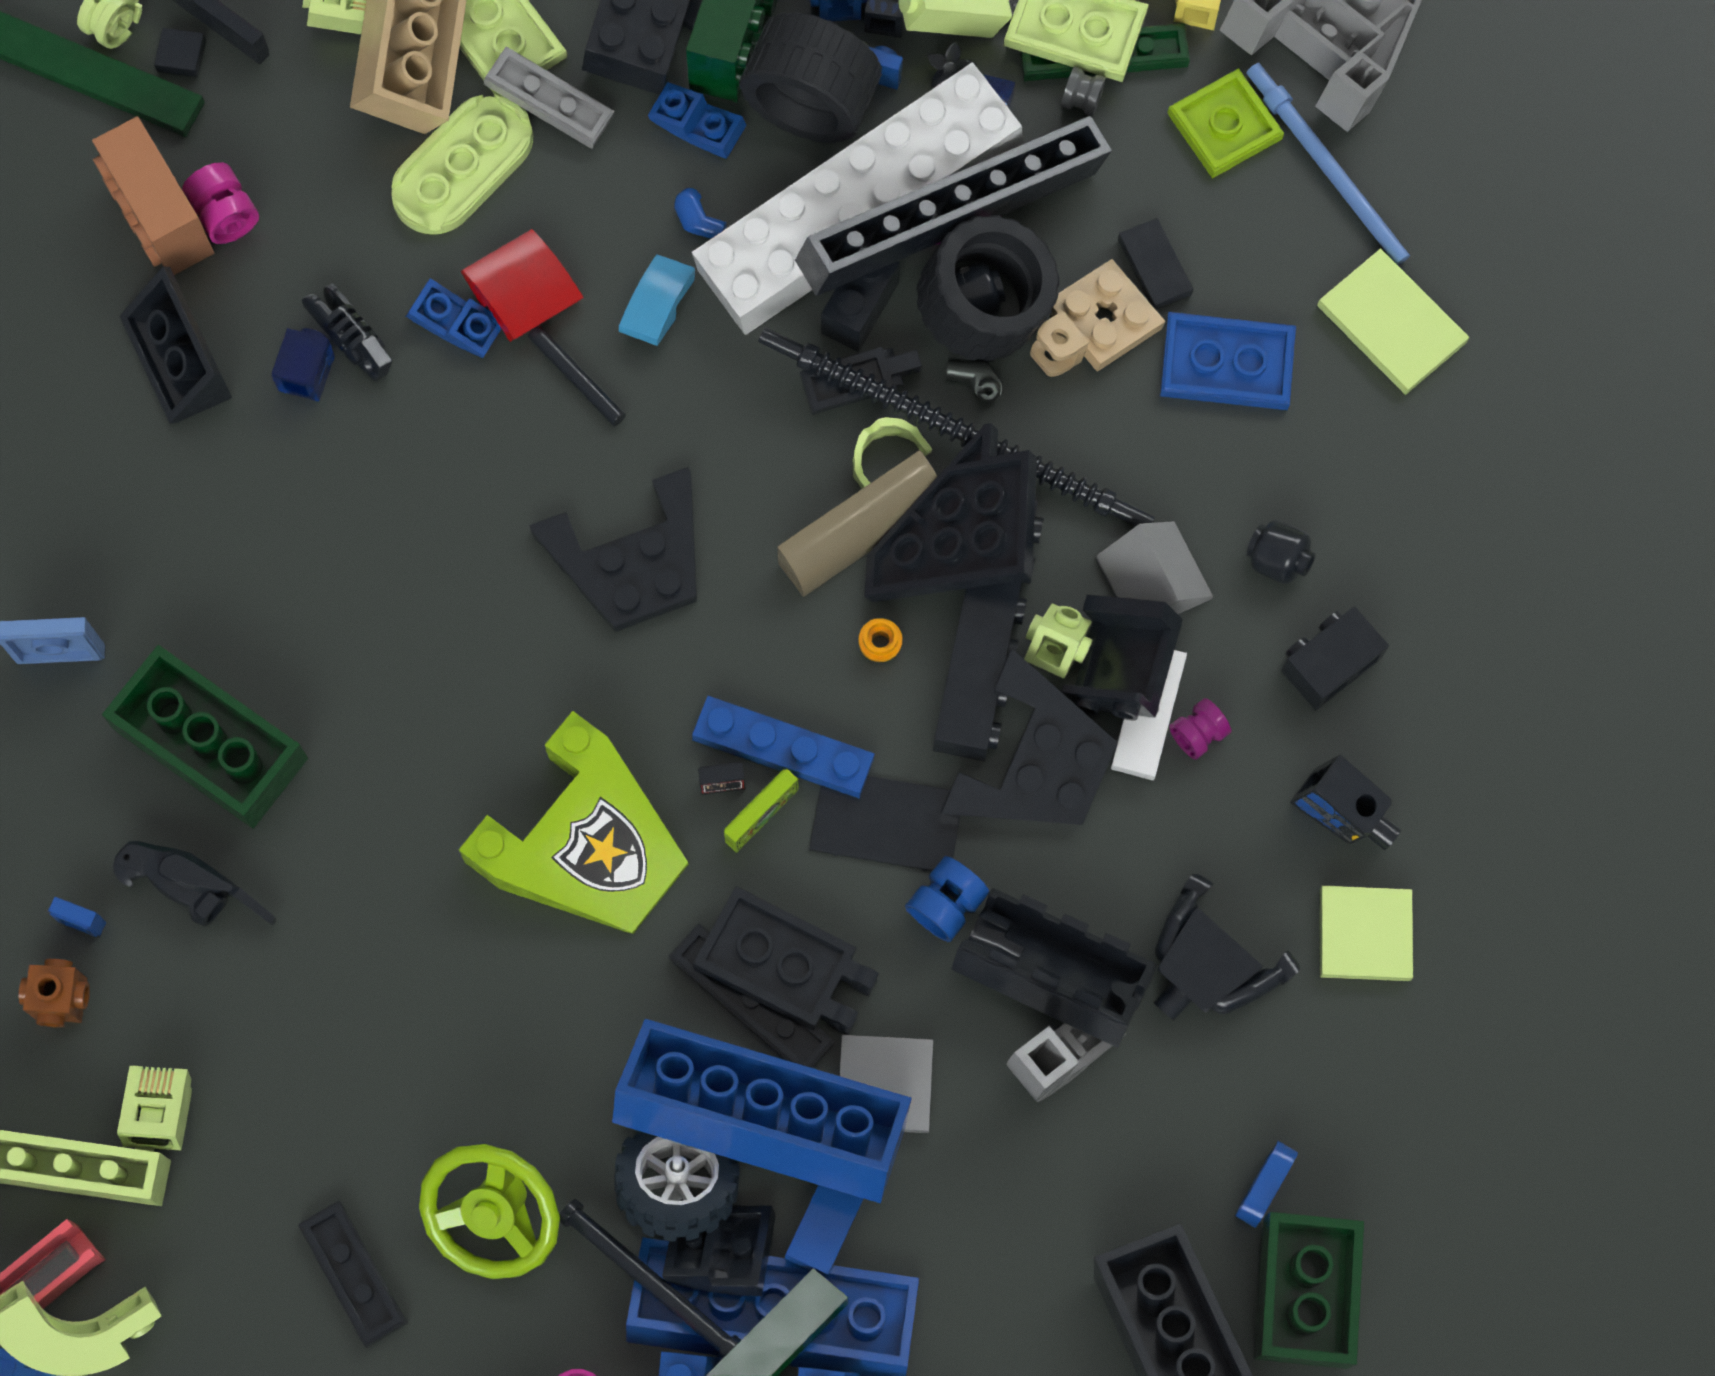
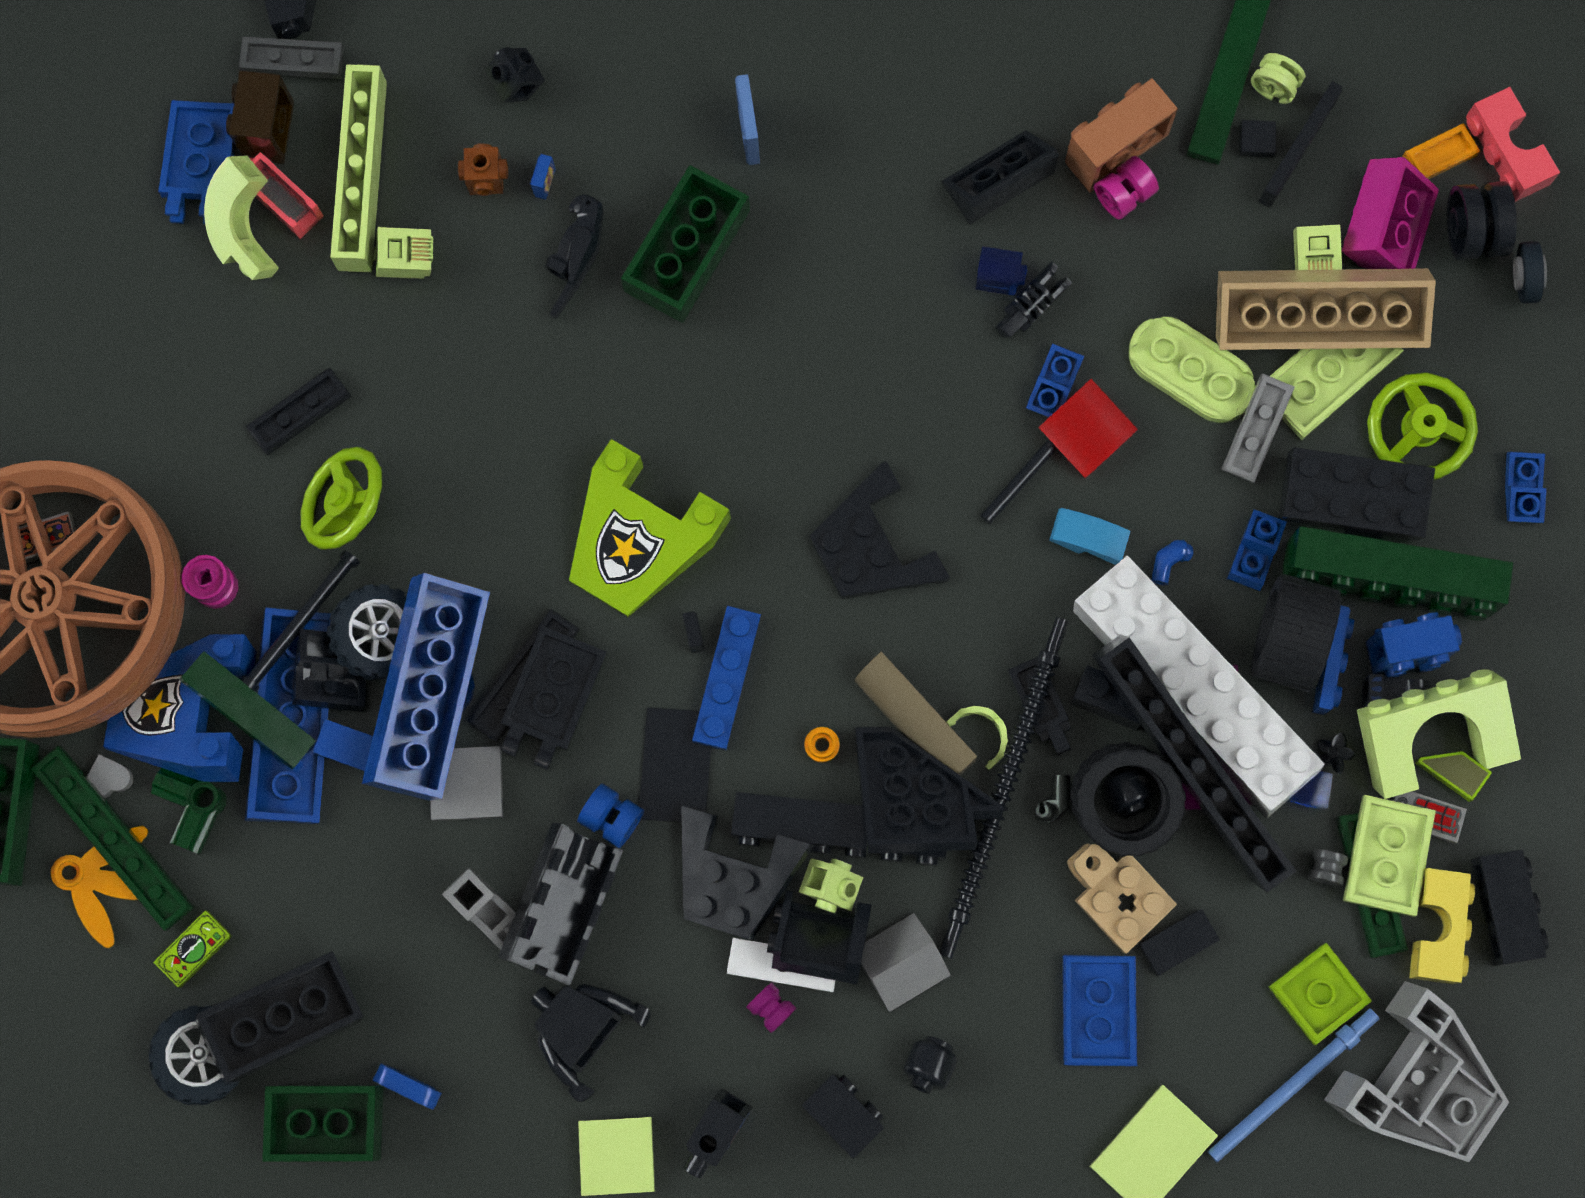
camera: 90 degrees right, 5 degrees up
(760, 810) = (670, 664): lime tile -> none

